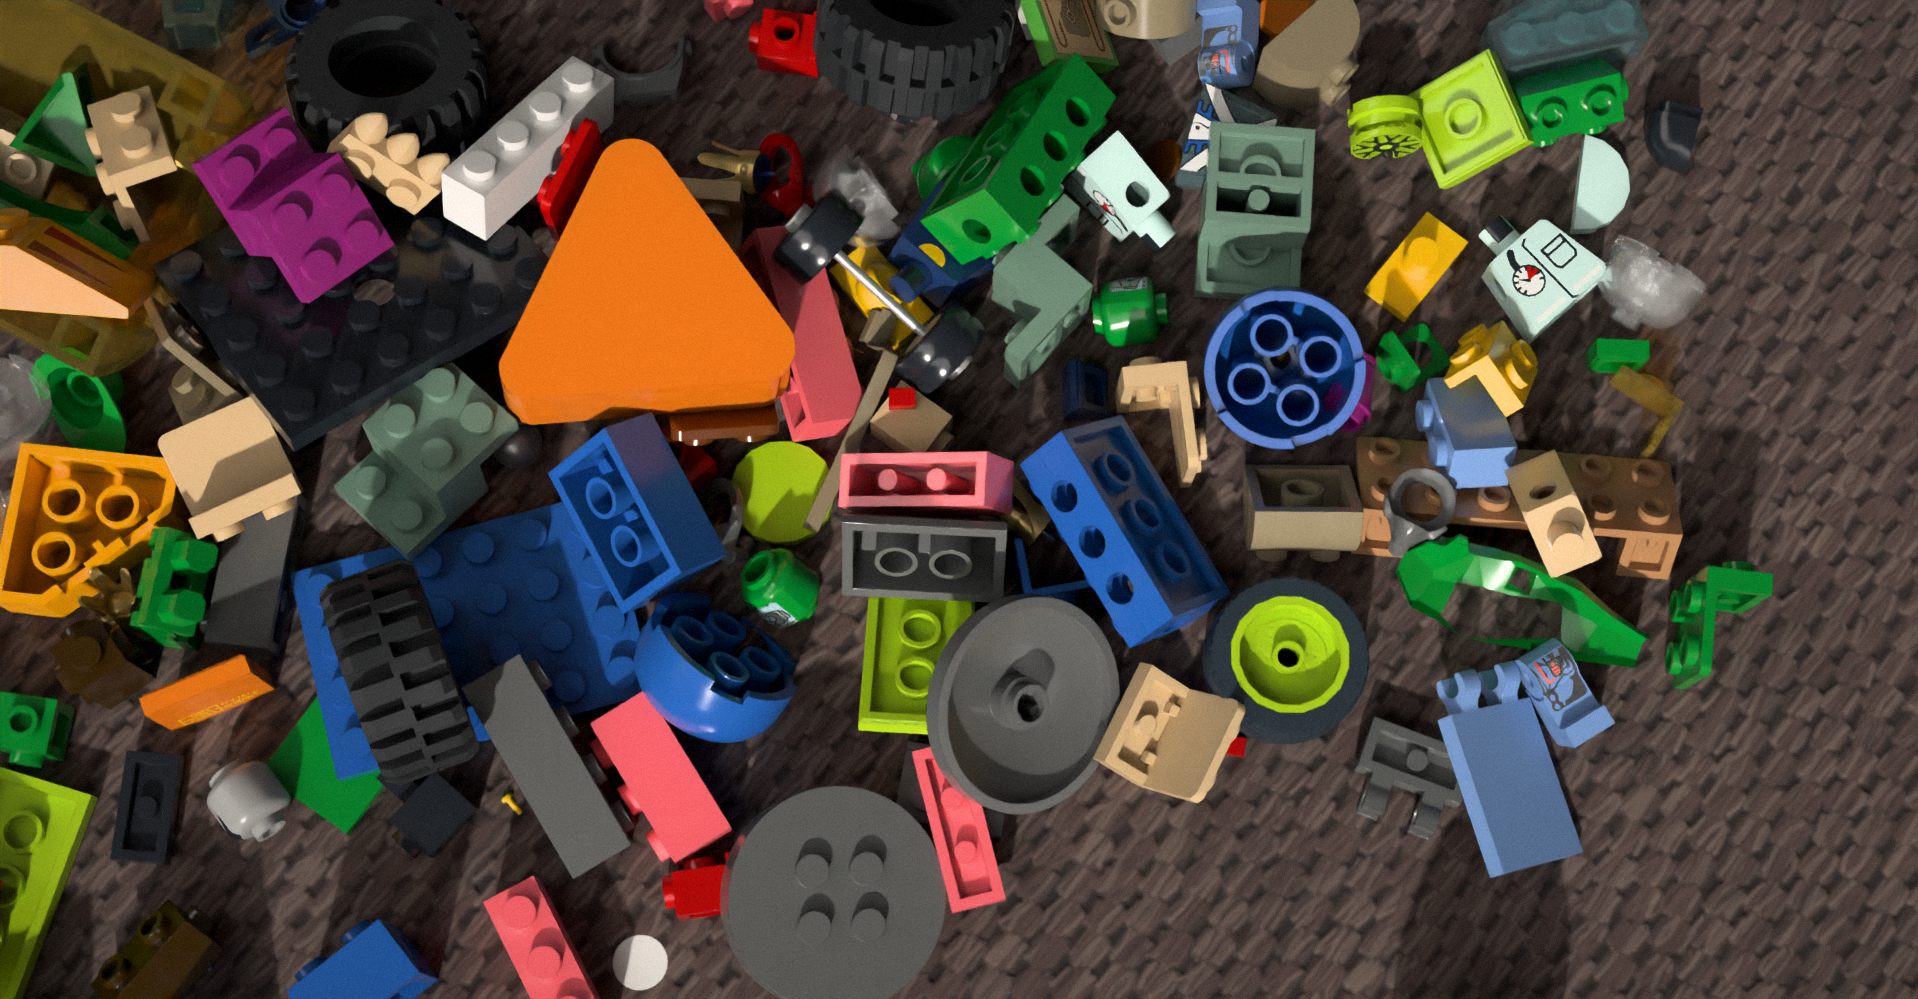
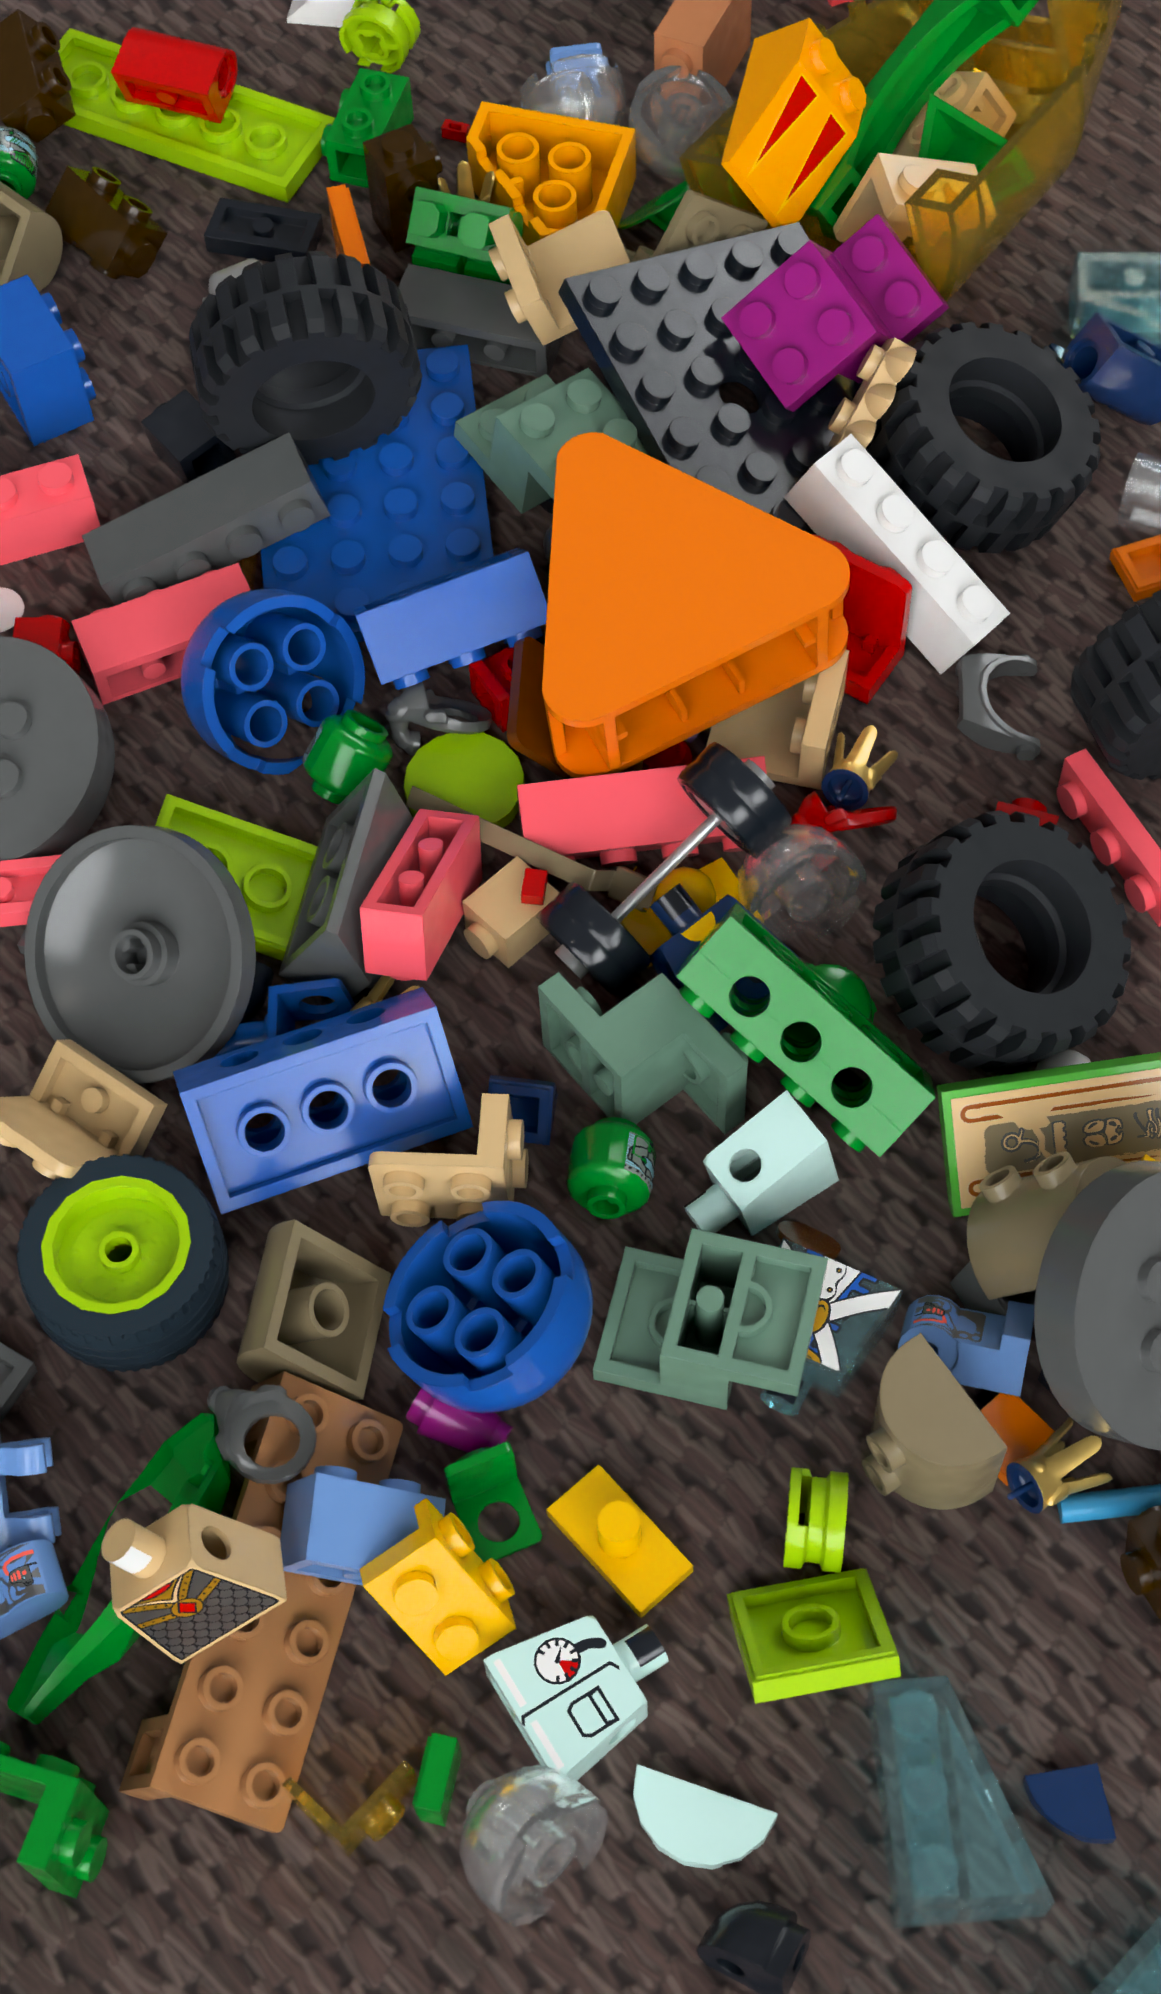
camera: 105 degrees right, 15 degrees down
(1571, 100) = (824, 1783): green brick -> none

